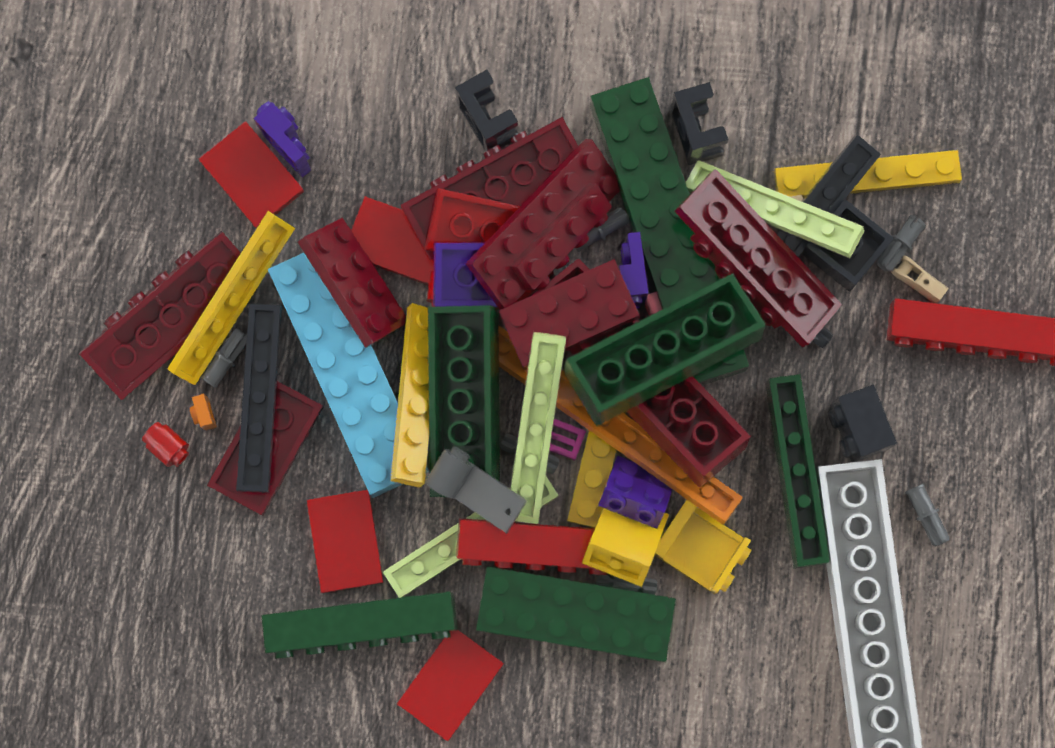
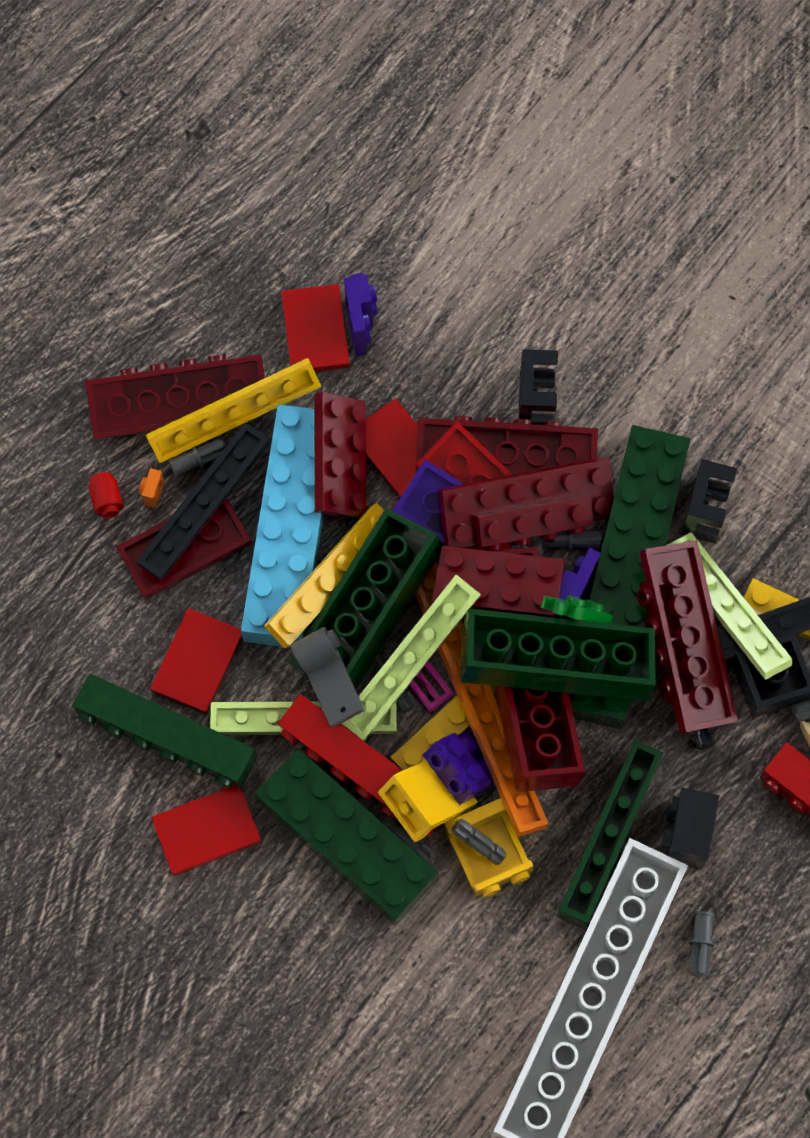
camera: 30 degrees right, 10 degrees down
(656, 297) = (577, 609): none -> green plate
(691, 548) = (479, 841): none -> dark grey axle

